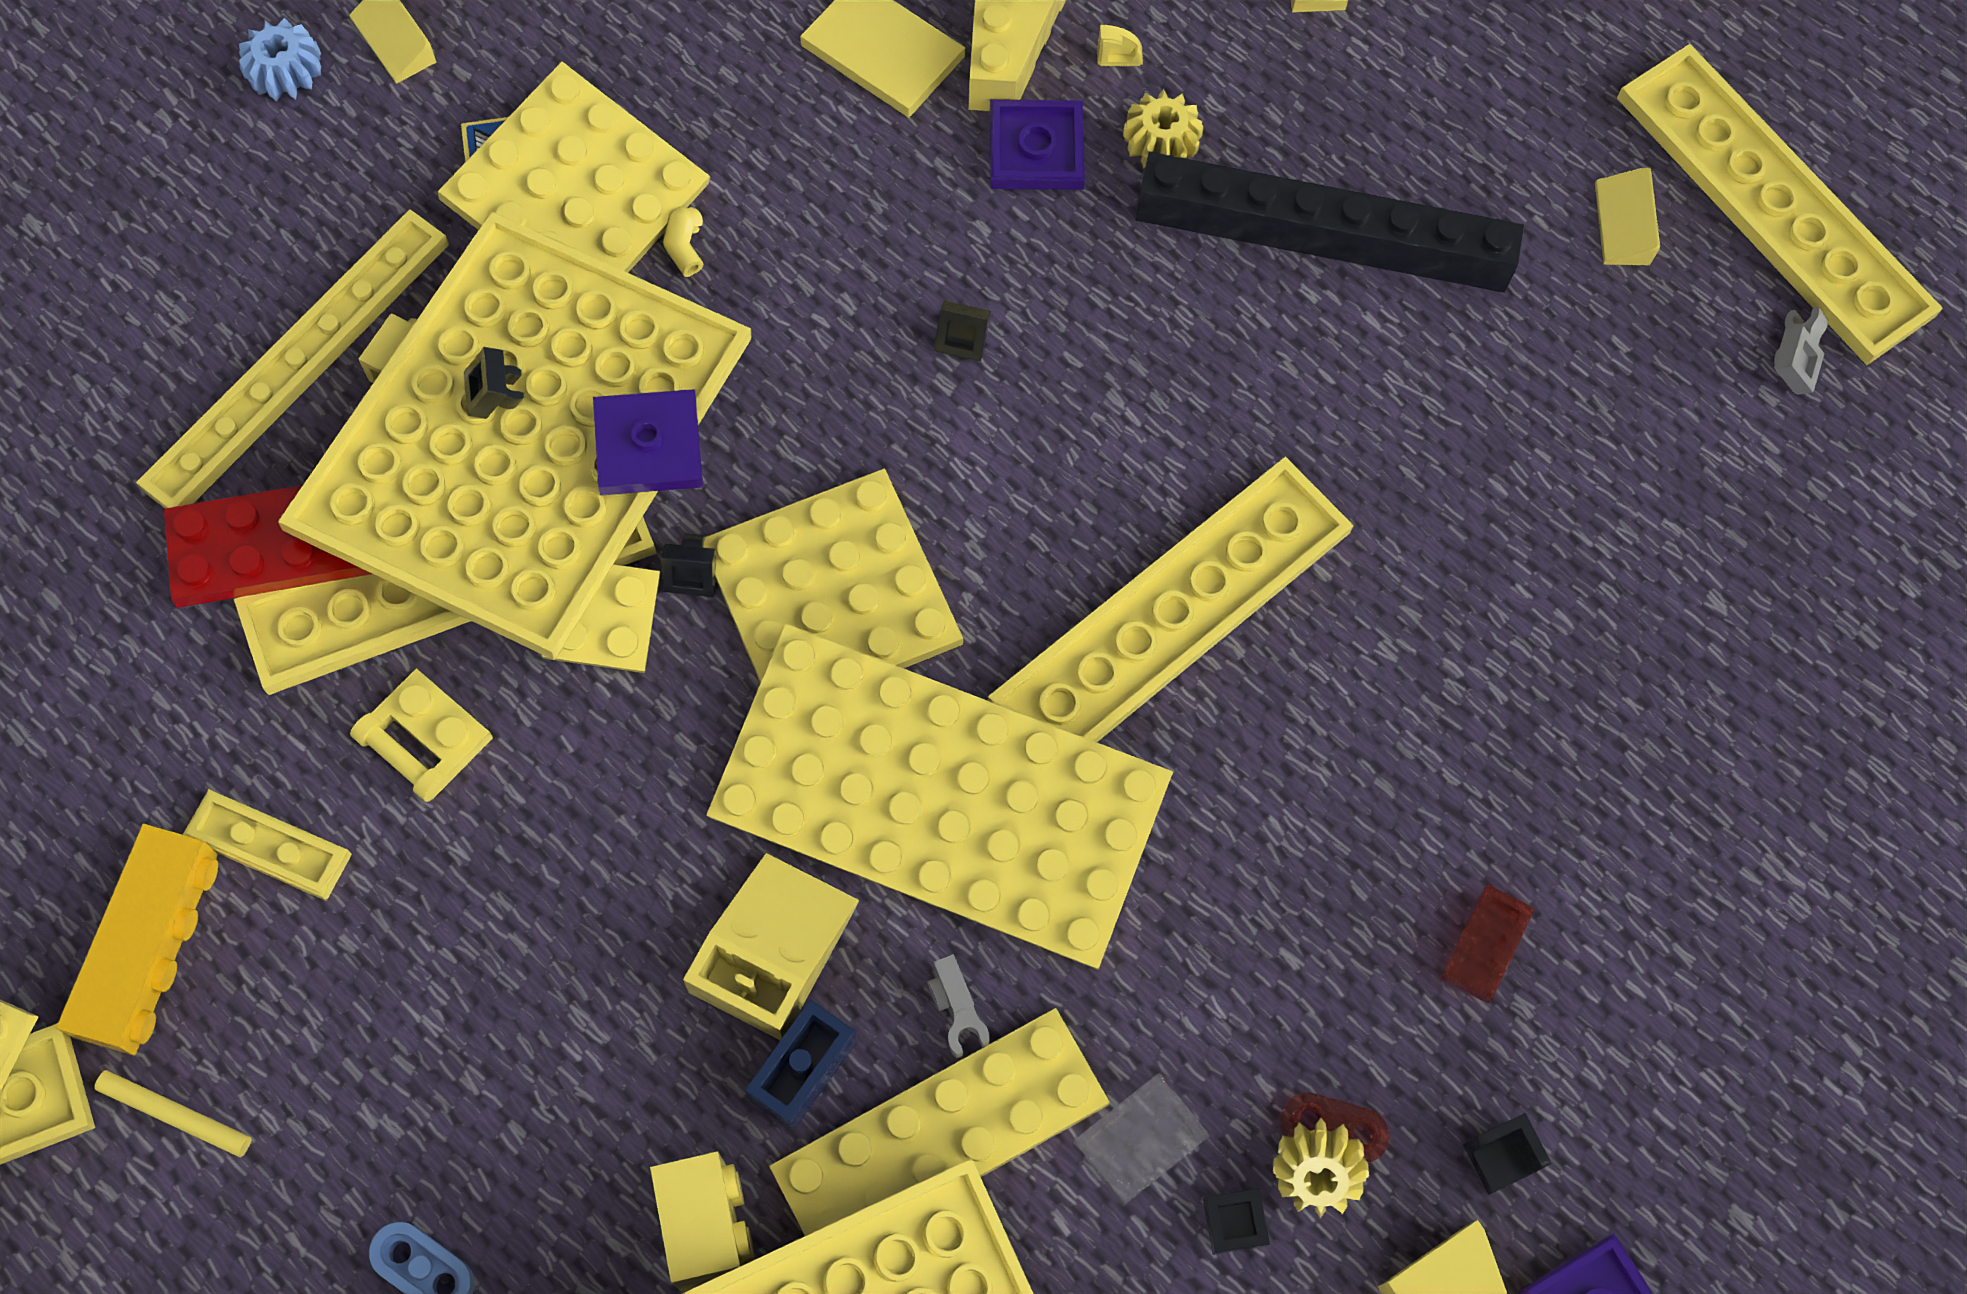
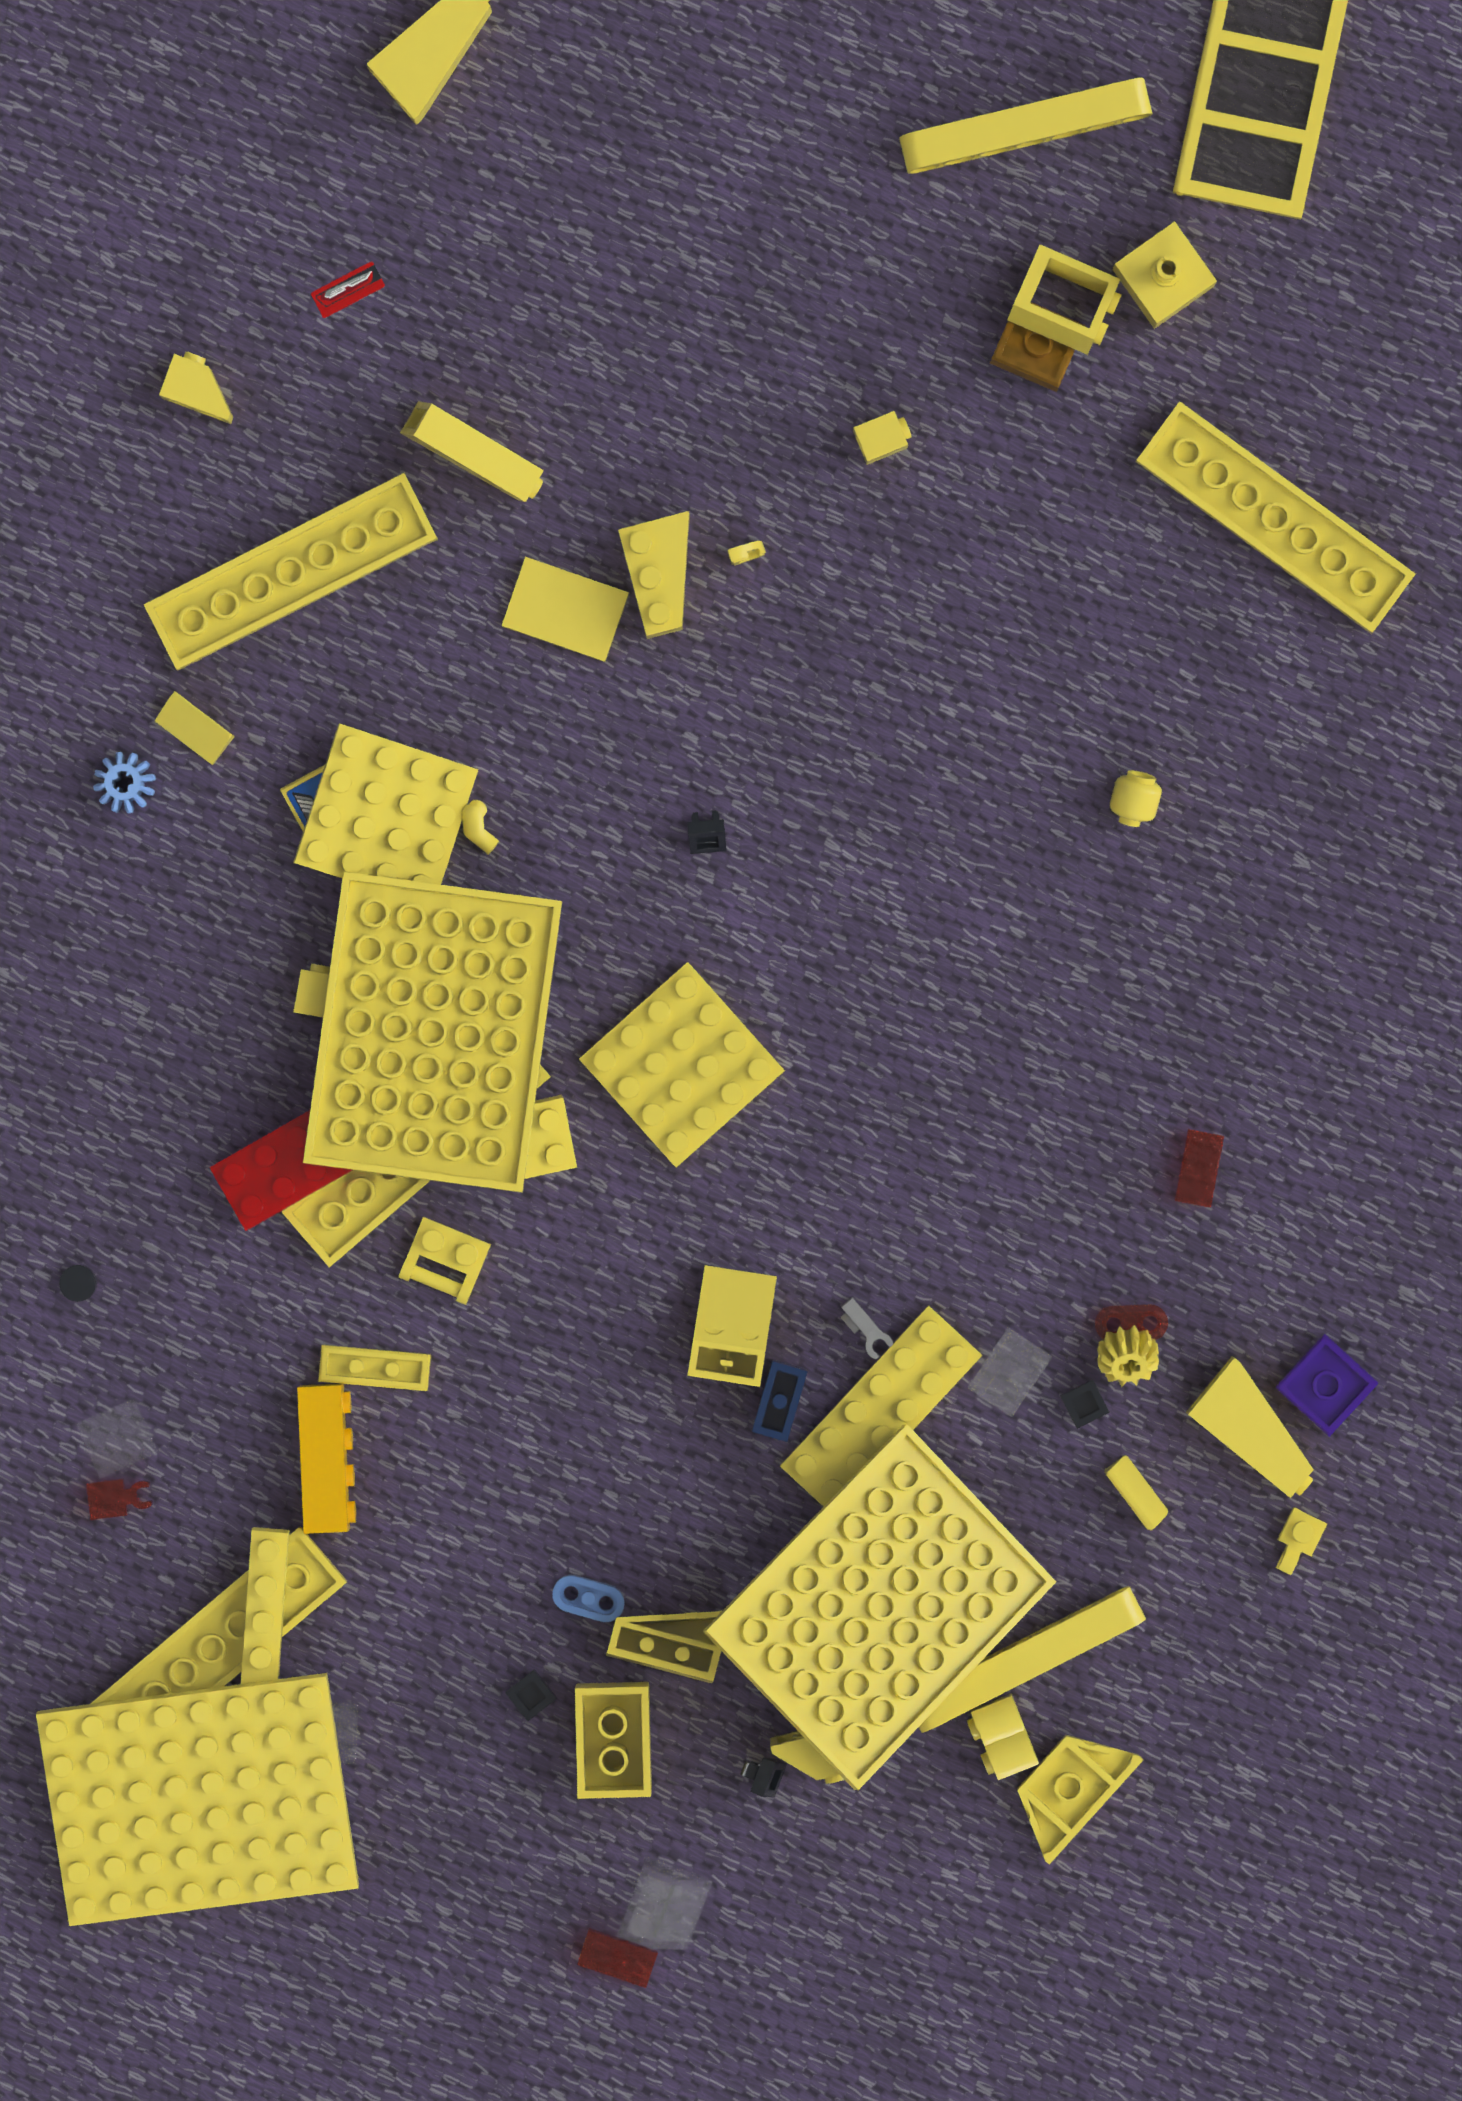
camera: 15 degrees left, 20 degrees up
(173, 1113) = (392, 1556): light yellow bar -> none
(293, 363) = (243, 1019): light yellow plate -> none
(487, 382) = (403, 1017): black tile -> none
(647, 442) = (526, 1019): dark purple plate -> none
(689, 567) = (580, 1083): black tile -> none
(700, 1220) = (752, 1517): light yellow brick -> none
(941, 795) = (807, 1189): light yellow plate -> none
(1036, 144) = (710, 658): dark purple plate -> none
(1162, 127) = (789, 611): light yellow gear -> none
(1178, 606) = (923, 1003): light yellow plate -> none
(1329, 222) = (945, 656): black brick -> none
(1507, 1153) = (1244, 1305): black panel -> none
(1523, 453) = (1135, 798): none -> light yellow head
(1627, 218) = (1166, 569): light yellow slope -> none
(1799, 354) = (1318, 646): light grey plate -> none

